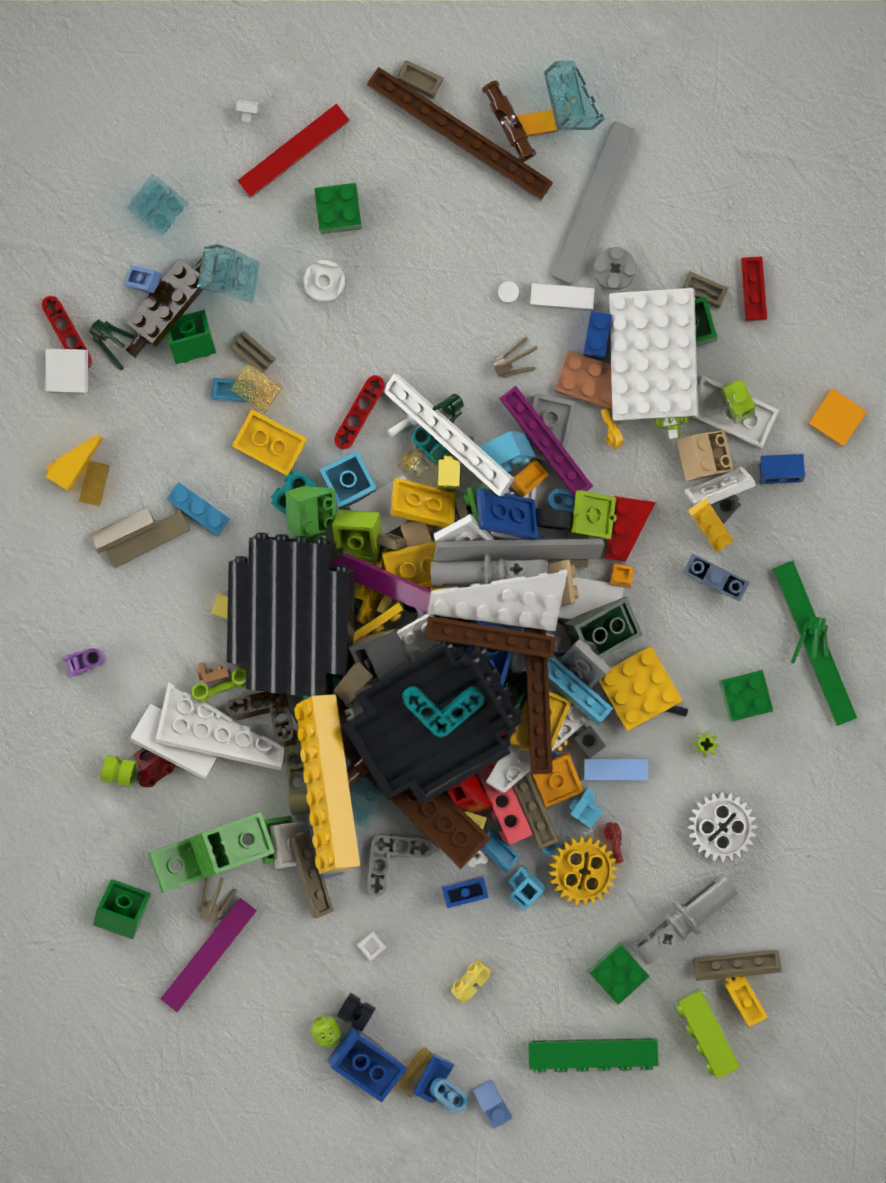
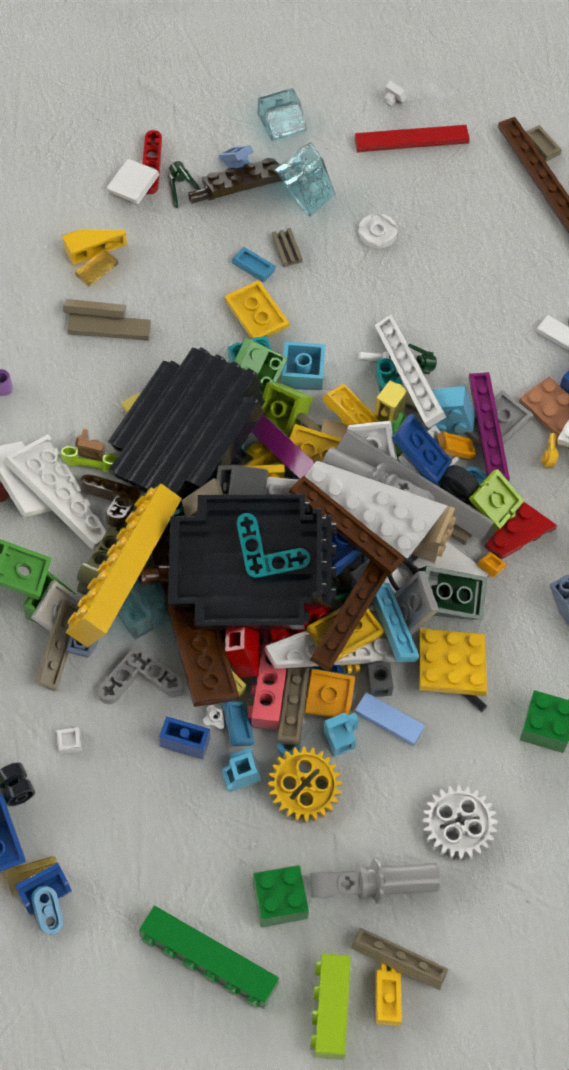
camera: 25 degrees right, 25 degrees down
(191, 338) = (244, 211): green slope -> none
(198, 509) = (166, 328): dark azure plate -> none
(256, 387) = (272, 268): clear yellow plate -> none
(338, 208) = (422, 186): green brick -> none
(363, 414) = (345, 331): red beam -> none
(413, 462) = (366, 385): clear piece -> none
(463, 988) = (128, 824): light yellow hinge -> none
(492, 1104) = (82, 949): medium blue slope -> none
(503, 365) = (487, 358): dark tan plant -> none
(508, 292) = (523, 312): white tile -> none
(613, 833) = (353, 770): clear red plate -> none
(701, 748) = (486, 735): lime gear -> none

